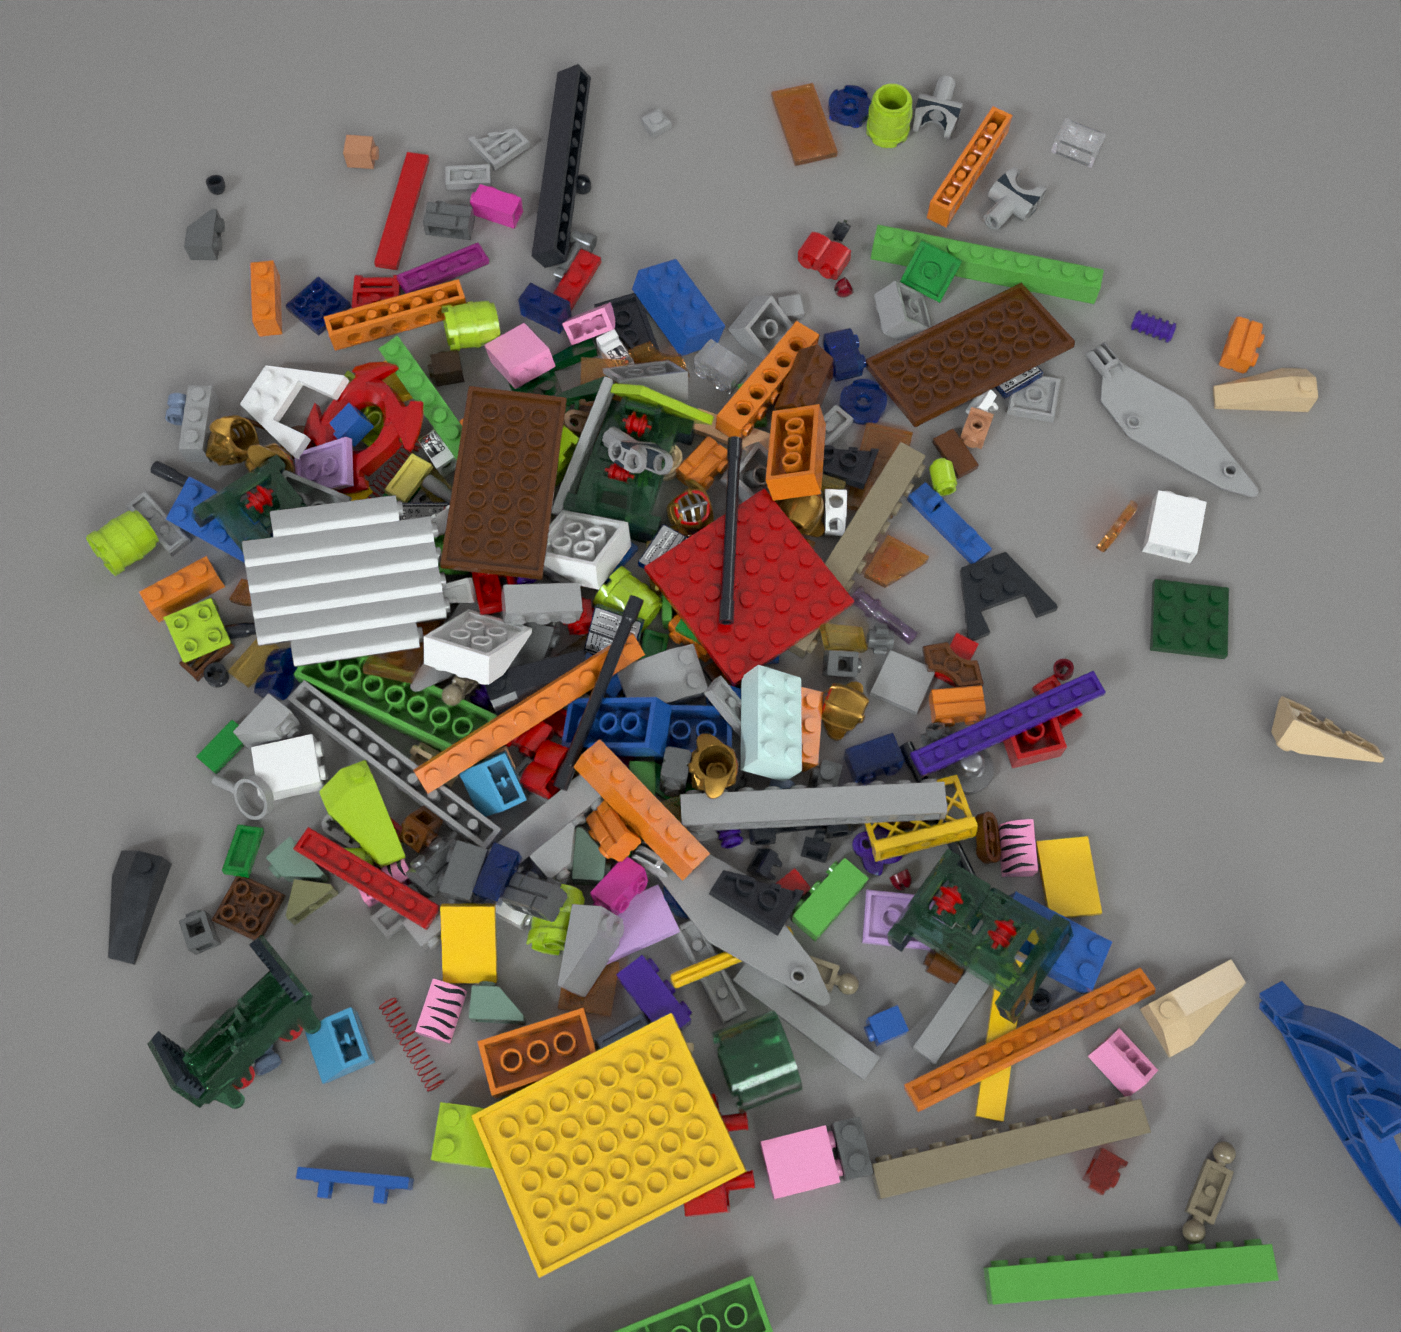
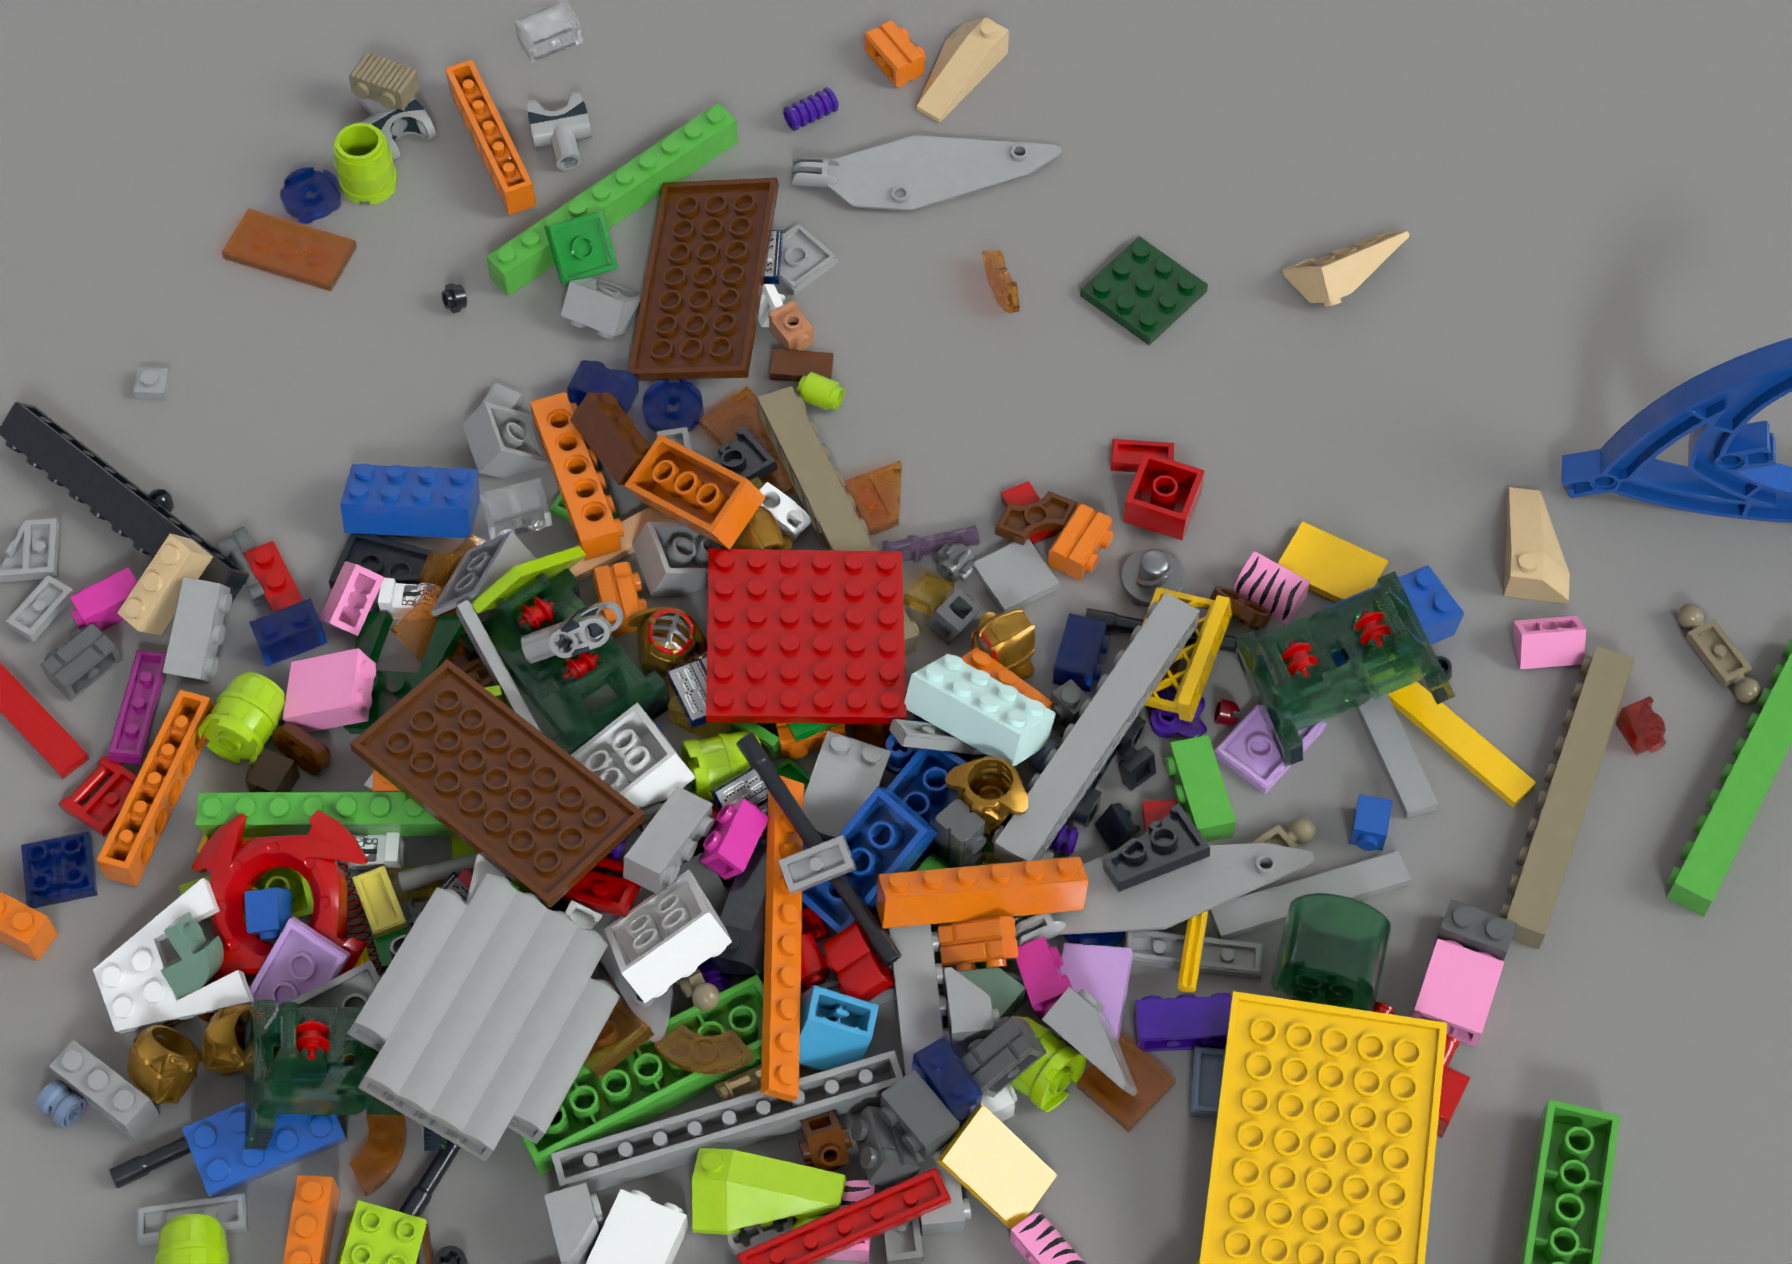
camera: 55 degrees left, 10 degrees down
(251, 663) = (467, 1210): clear yellow tile -> none
(278, 675) = (513, 1185): clear blue brick -> none
(301, 407) = (197, 957): none -> sand green brick
(422, 721) = (704, 1053): none -> clear orange tile
(477, 363) = (301, 748): none -> reddish brown plate
(492, 1005) = (1082, 1190): sand green slope -> none
(506, 260) = (197, 630): none -> light grey brick
(521, 223) = (157, 592): none -> tan brick
(535, 1051) = (1169, 1173): orange brick -> none
(574, 639) = (733, 838): none -> dark pink brick
(581, 699) = (817, 864): none -> light grey plate
(727, 602) = (814, 660): black piece -> none
(824, 256) = (470, 331): red brick -> none
(843, 288) = (523, 337): dark red hinge -> none
(935, 732) = (1103, 580): dark grey gear -> none
(942, 968) = (1344, 732): reddish brown brick -> none
(949, 524) = (876, 422): blue hinge -> none
(953, 82) = (384, 81): none -> dark tan brick
(993, 584) = (973, 427): black wing -> none
(1007, 724) = (1142, 505): dark purple tile -> none
(1028, 1039) = (1471, 707): orange plate -> none
(1059, 666) = (1121, 425): dark red hinge -> none
(1174, 526) = (1040, 235): white brick -> none

